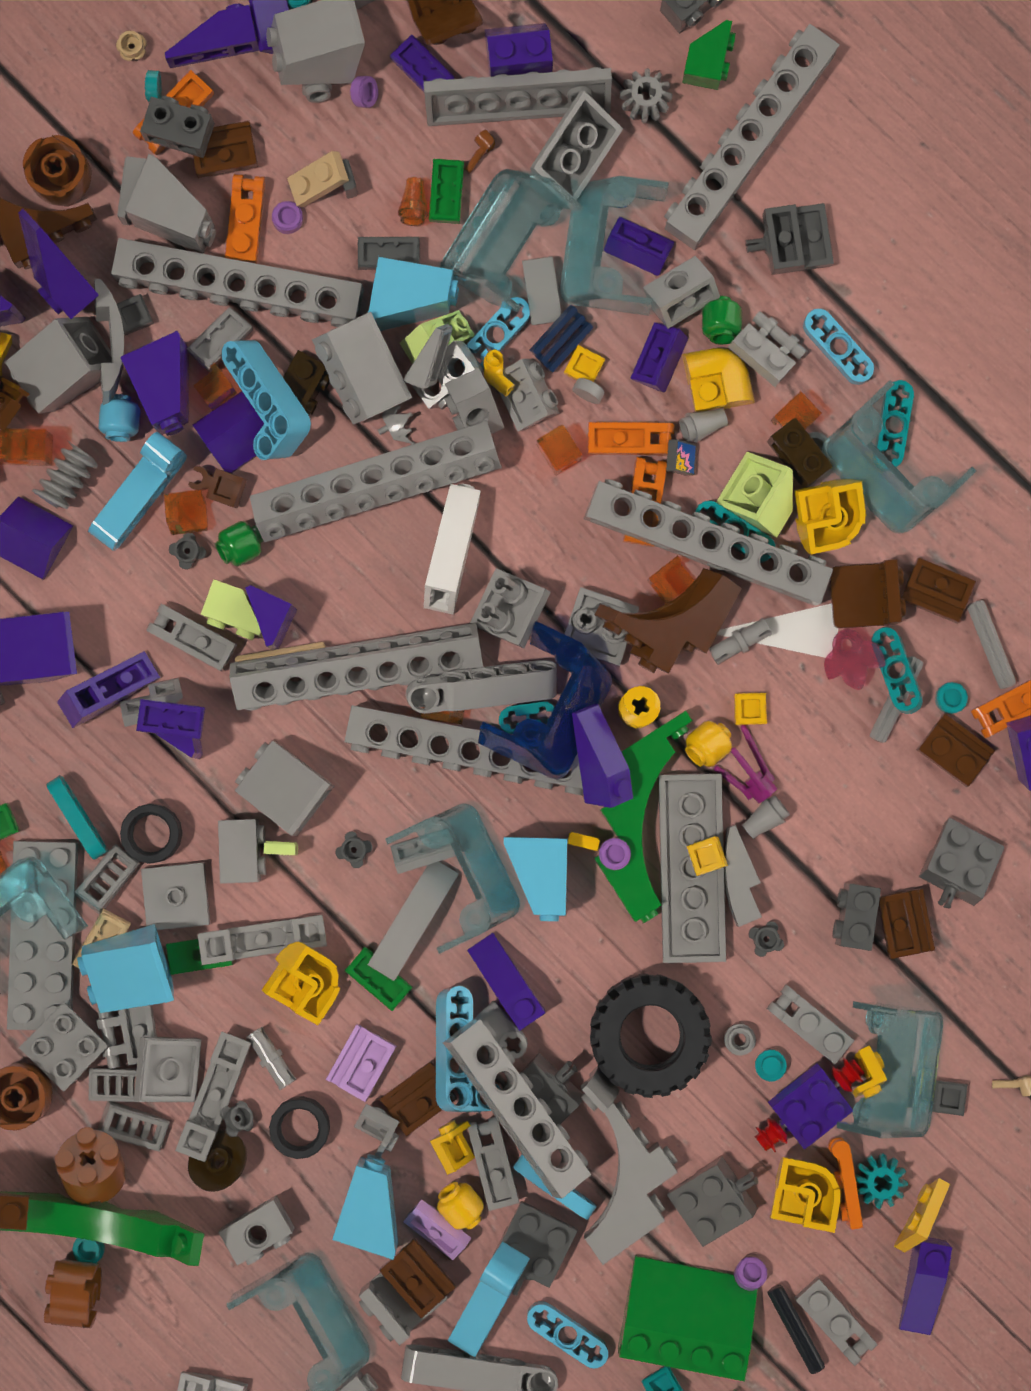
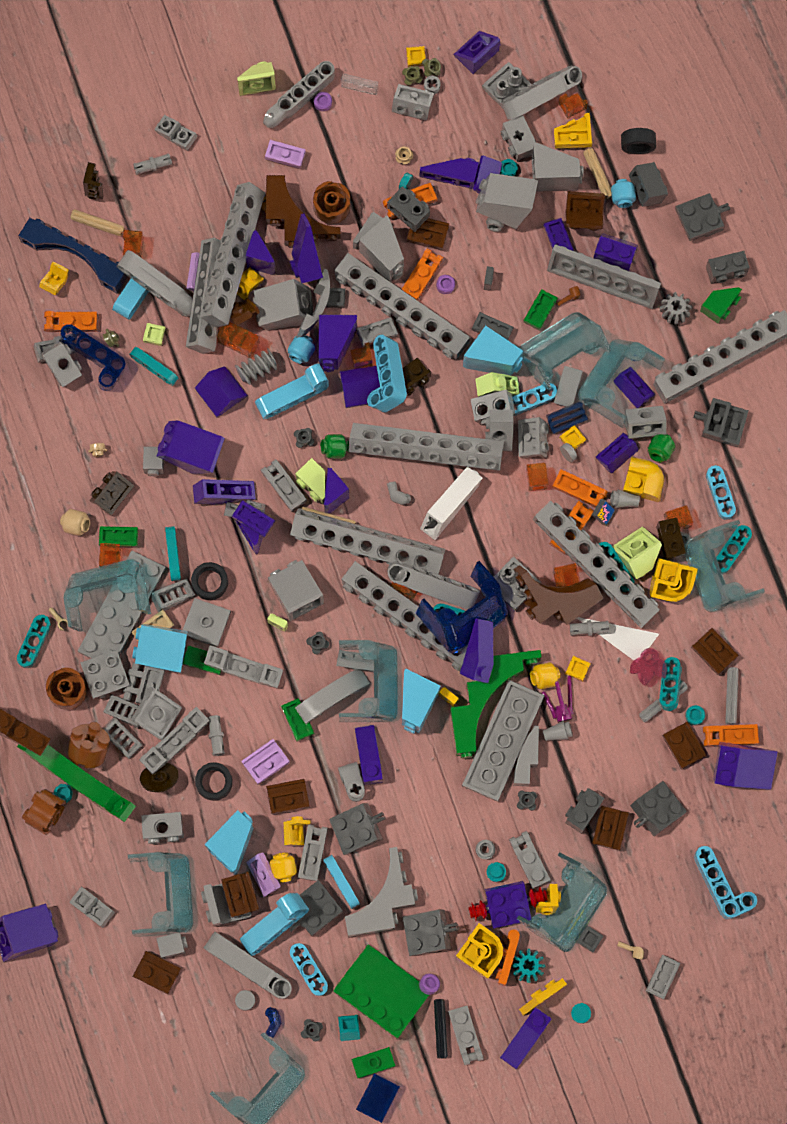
camera: 25 degrees right, 10 degrees down
(186, 512) = (313, 416): clear orange panel -> none
(221, 487) = (339, 411): reddish brown plate -> none
(241, 851) = (254, 613): light grey brick -> none
(245, 1118) = (184, 756): dark grey plate -> none
(304, 982) = (256, 700): yellow brick -> none
(318, 179) = (472, 271): tan plate -> none
(361, 368) = (447, 381): light grey slope -> none
(364, 91) = (520, 236): medium lavender tile -> none
(367, 574) = (397, 496): none -> light grey arm
(379, 1125) = (258, 800): light grey bracket -> none
(395, 424) = (452, 421): light grey piece -> none
(413, 204) = (519, 307): clear orange cone -> none
(427, 365) = (487, 393): light grey slope -> none
(445, 1078) = (324, 778): medium azure beam -> none
(463, 1048) = (337, 832): light grey brick -> none
(493, 372) = (520, 418): yellow arm -> none
(510, 608) = (468, 549): light grey plate -> none
(577, 145) = (623, 316): light grey slope -> none
(599, 1091) = (391, 837): light grey slope -> none
(614, 854) = (463, 709): medium lavender tile -> none
(651, 705) = (518, 629): yellow piece -> none
(656, 1078) = (442, 794): black tyre -> none
(707, 856) = (514, 735): yellow tile -> none
(764, 355) = (675, 477): light grey plate -> none
(867, 595) = (672, 635): reddish brown bracket -> none
(985, 1211) = (581, 1013): none -> teal tile

